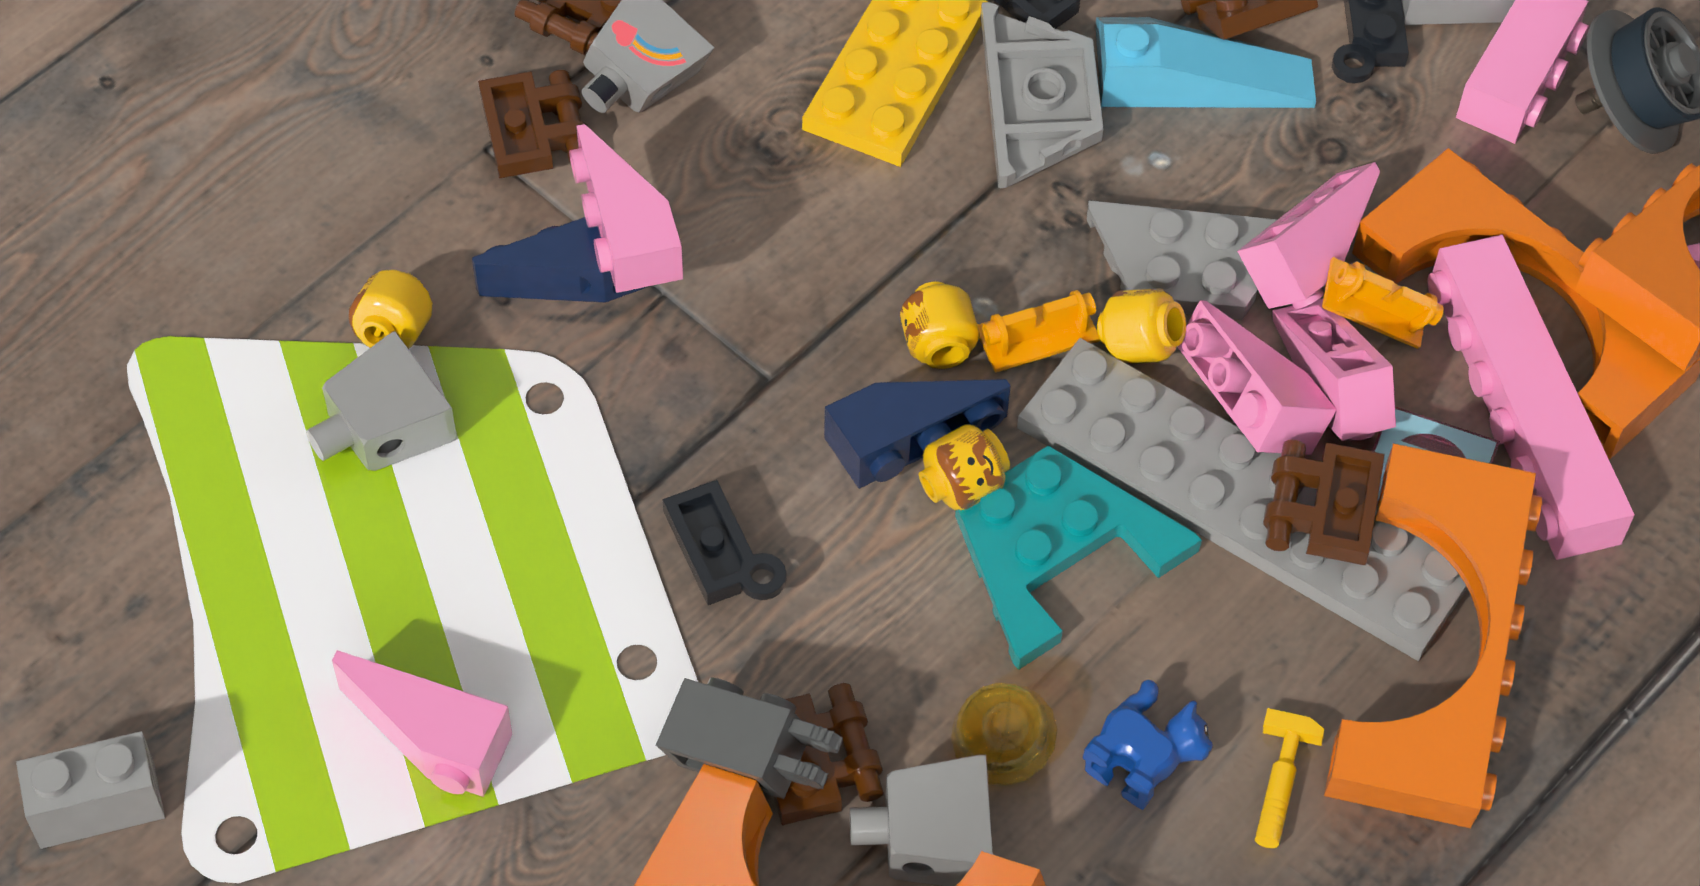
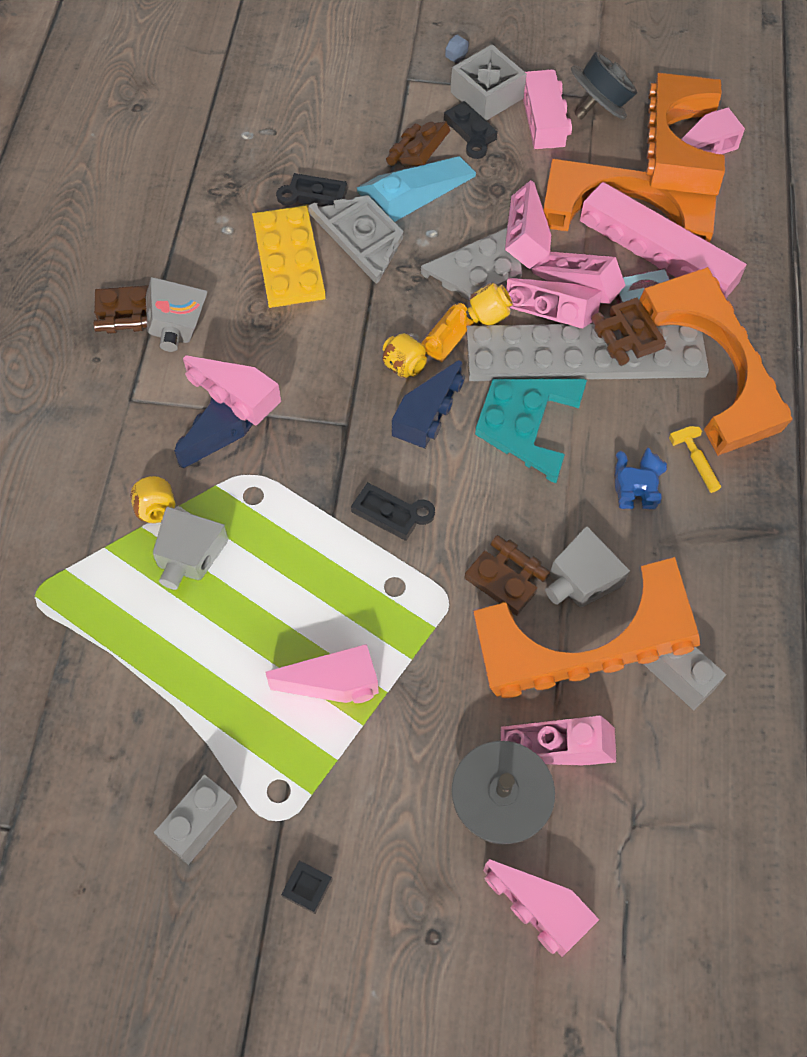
camera: 35 degrees left, 5 degrees up
(516, 121) = (141, 381): reddish brown plate -> none
(744, 736) = (481, 586): dark grey hinge -> none
(964, 467) = (468, 409): yellow head -> none
(1014, 719) = (575, 510): clear yellow hat -> none
(1379, 302) = (575, 237): light orange hinge -> none

